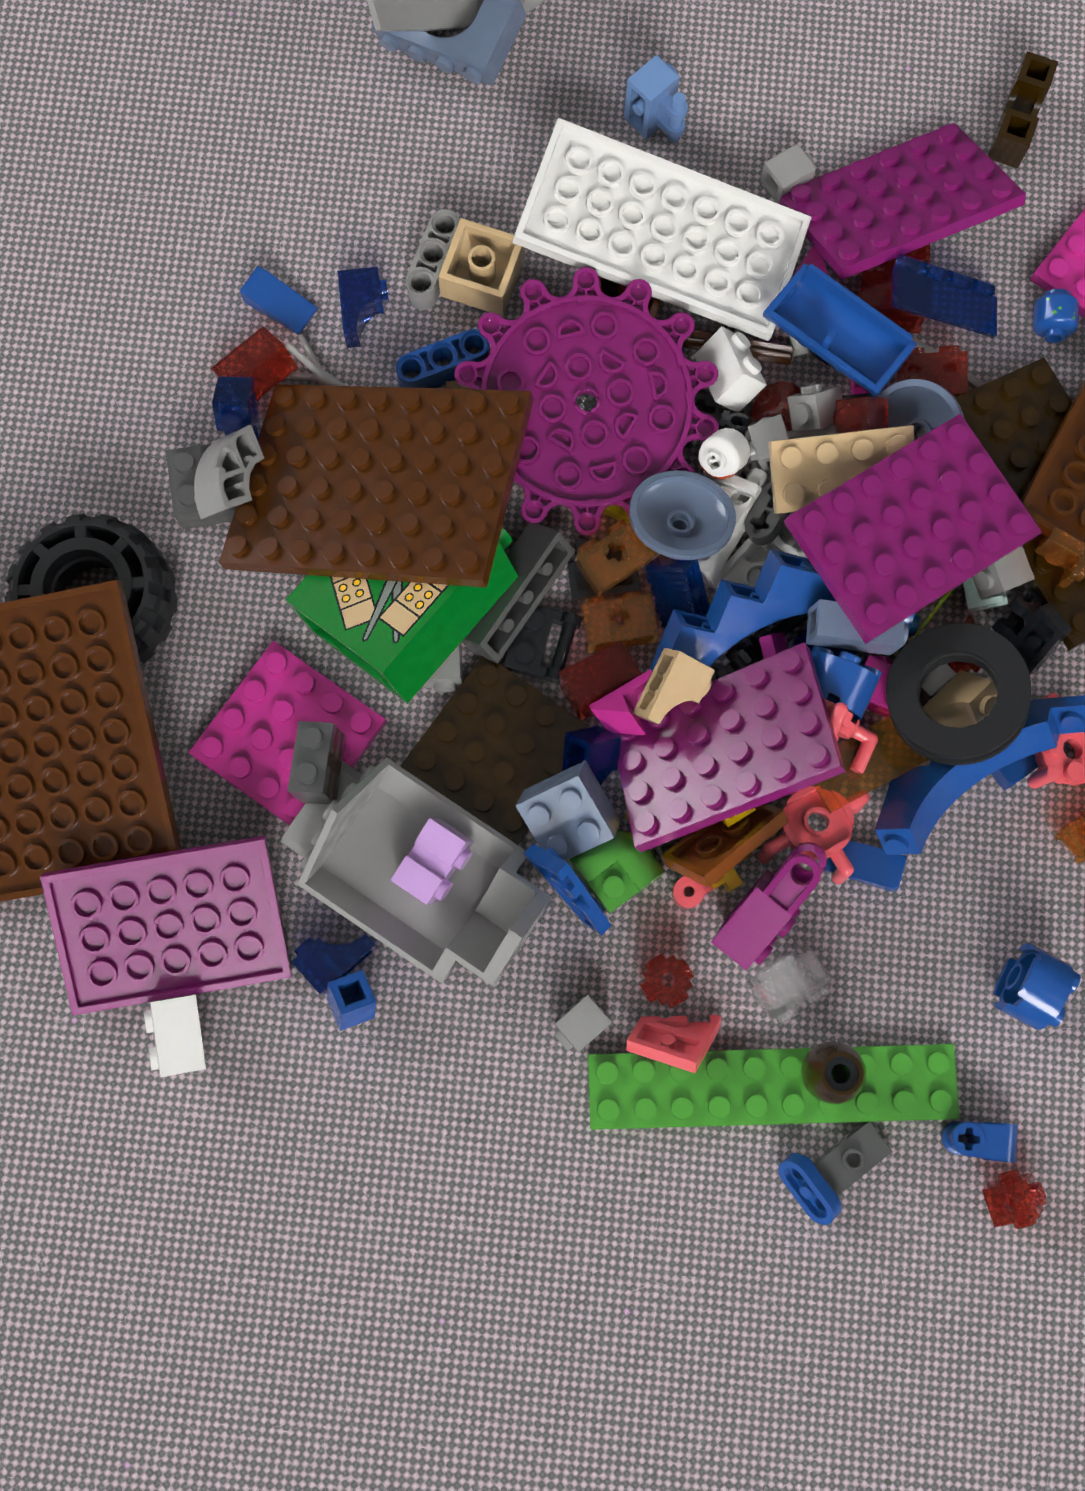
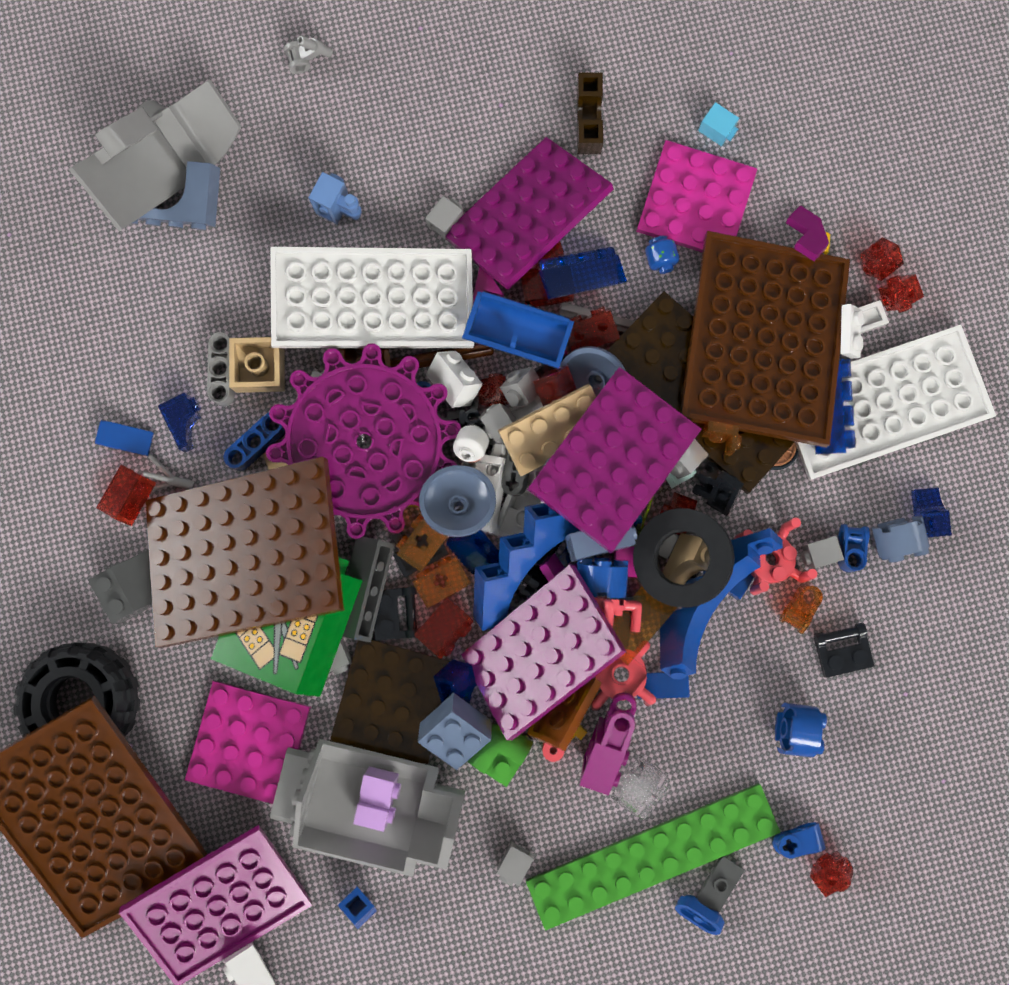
camera: 20 degrees left, 5 degrees up
(225, 472) = (135, 584): light grey brick -> none
(235, 405) = (124, 532): clear blue arch -> none
(316, 762) = (274, 760): dark grey brick -> none
(327, 962) = (331, 887): clear blue arch -> none
(569, 887) = (472, 781): blue wing -> none
(617, 707) = (467, 643): dark pink slope -> none
(656, 991) = (554, 807): clear red brick -> none
(673, 681) = (492, 622): tan arch -> none
(673, 1040) = (578, 852): coral wing -> none
(849, 1072) = (688, 841): dark brown piece -> none

